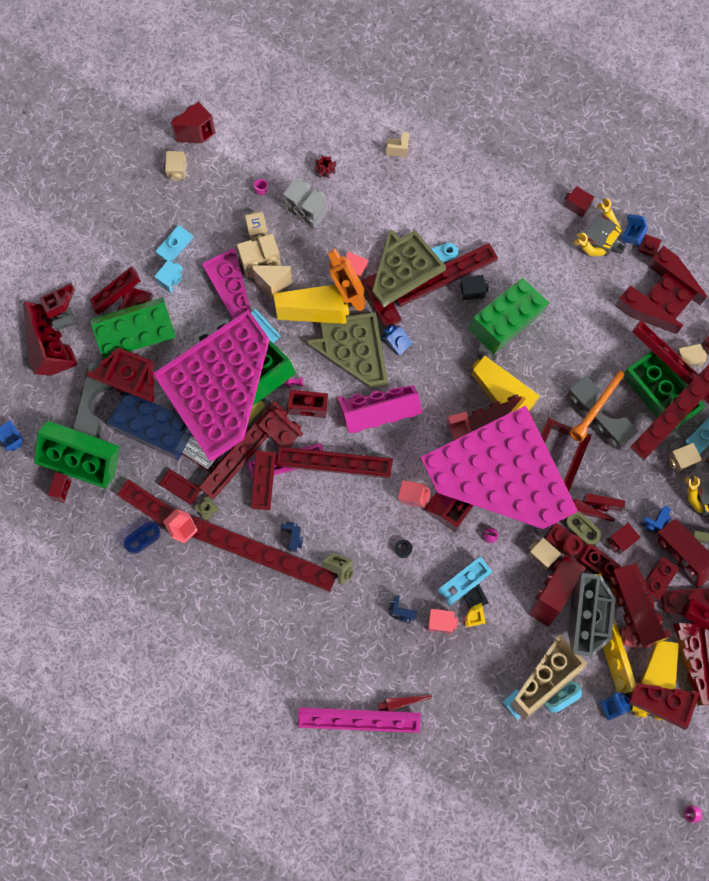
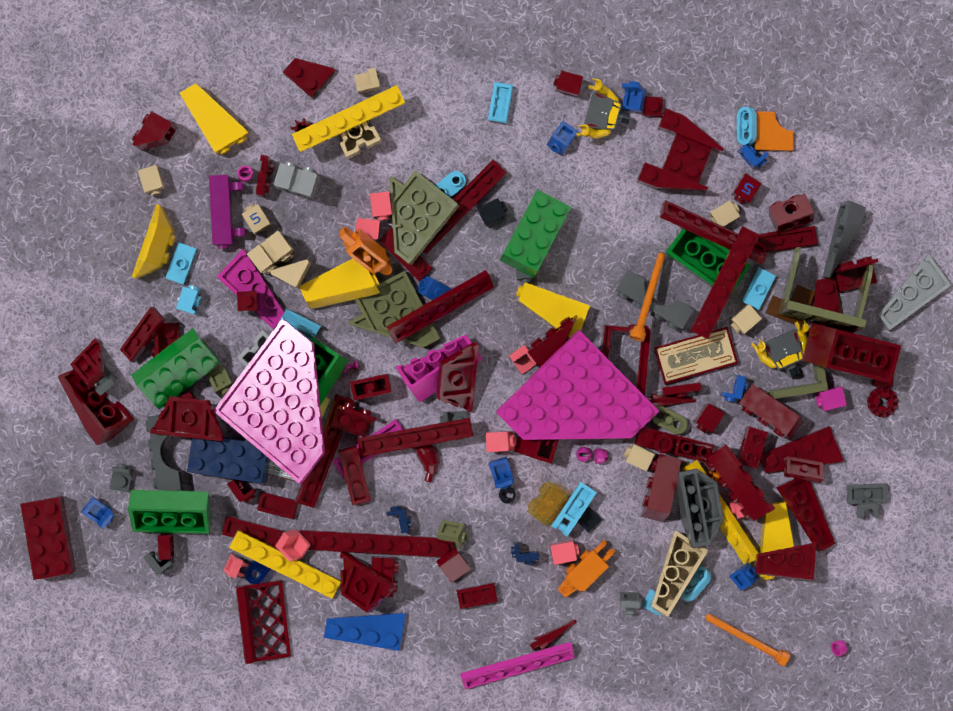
camera: 20 degrees left, 15 degrees up
(44, 412) = (121, 478): none -> dark grey bracket
(44, 500) = (156, 564): none -> dark grey bracket
(107, 587) = (246, 622): none -> dark red fence
(116, 528) = (233, 566): none -> coral tile
(149, 458) = (238, 490): none -> dark red bracket
(156, 220) = (155, 245): none -> yellow wedge
(169, 352) = (220, 380): none -> olive bracket
(171, 548) = (277, 561): none -> yellow plate
(206, 513) = (315, 517): olive plate -> none
(222, 290) = (248, 301): none -> dark red brick
(223, 635) = (370, 630): none -> blue wing
(227, 210) = (221, 211): none -> magenta brick
(234, 585) = (362, 584): none -> dark red wing
(251, 137) = (216, 124): none -> yellow slope
(256, 586) = (386, 568): none -> dark red brick
(276, 192) = (267, 169): none -> dark red wing
(328, 597) = (453, 565): none -> dark red piece
(339, 489) = (429, 458): none -> dark red piece
(341, 636) = (477, 595): none -> dark red plate
(346, 125) = (308, 75): none -> dark red wing
(370, 163) = (348, 118): none -> yellow plate
(372, 181) = (367, 137): none -> tan brick
(374, 249) = (381, 205): none -> coral brick
(393, 419) = (458, 377): none -> dark red wing
(398, 352) = (440, 306): none -> dark red plate
(405, 525) = (501, 473): none -> blue bracket
(441, 568) = (548, 503): none -> clear yellow brick
(458, 647) = (586, 570): none -> orange hinge
(475, 616) = (592, 536): yellow tile -> none
(492, 692) = (629, 601): none -> dark grey tile
(507, 539) = (602, 456): none -> dark pink hinge
(511, 199) = (500, 102): none -> medium azure plate
(557, 245) = (561, 138): none -> blue bracket
(627, 477) = (695, 355): none -> tile
(630, 803) = (780, 657): none -> orange piece

